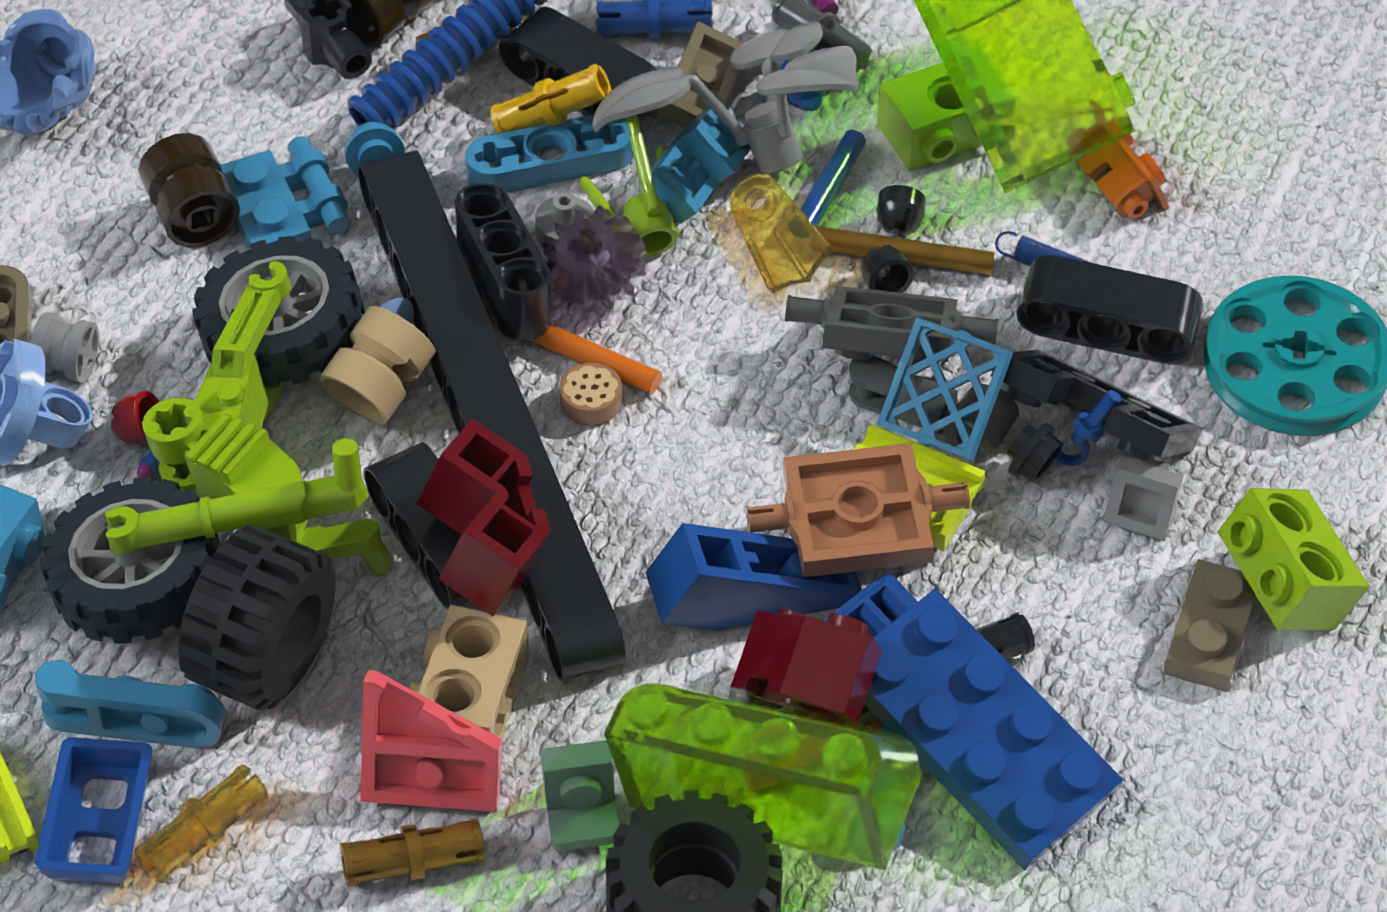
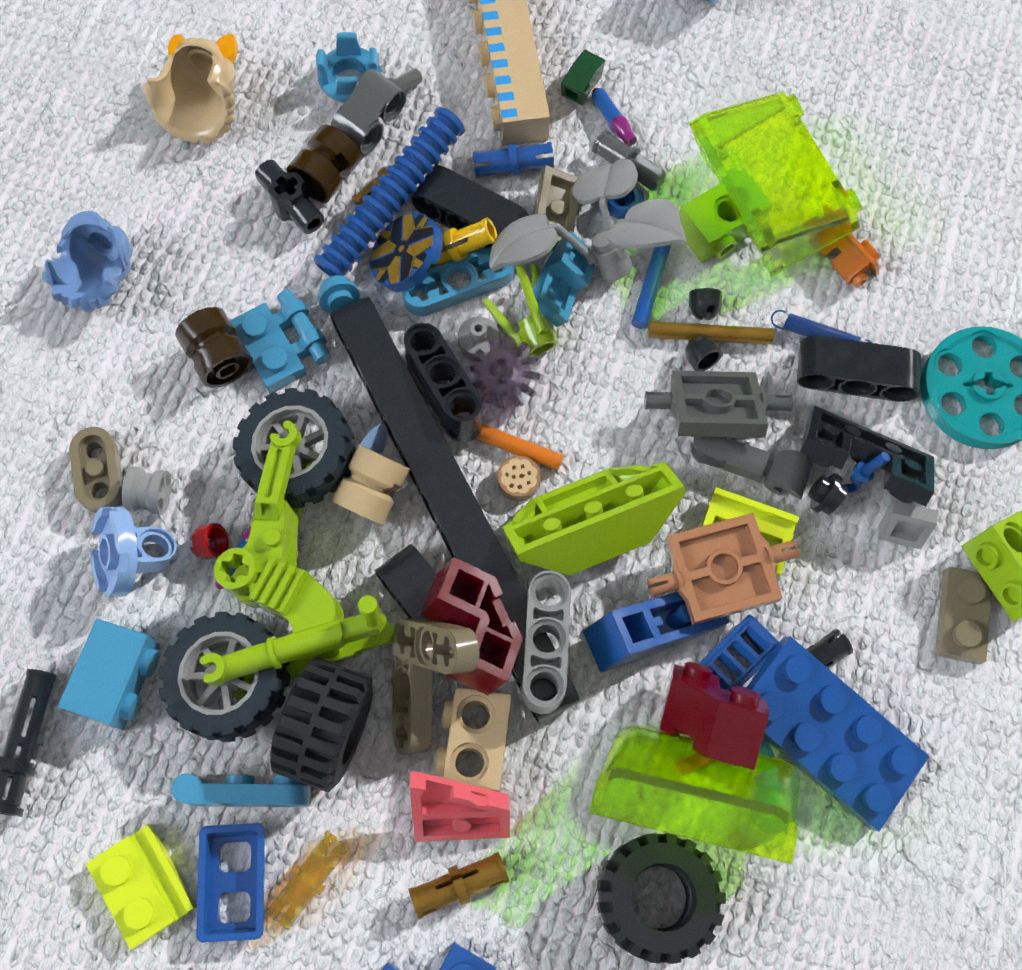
camera: 10 degrees left, 20 degrees up
(408, 537) = (418, 650): none -> dark tan beam
(477, 102) = (406, 252): none -> tile
(579, 795) = (570, 833): sand green bracket -> none
(585, 555) = (548, 619): none -> light grey beam
(692, 443) = (595, 517): none -> lime wedge
(777, 233) = (625, 332): clear yellow piece -> none
(904, 373) = (779, 431): dark azure window -> none

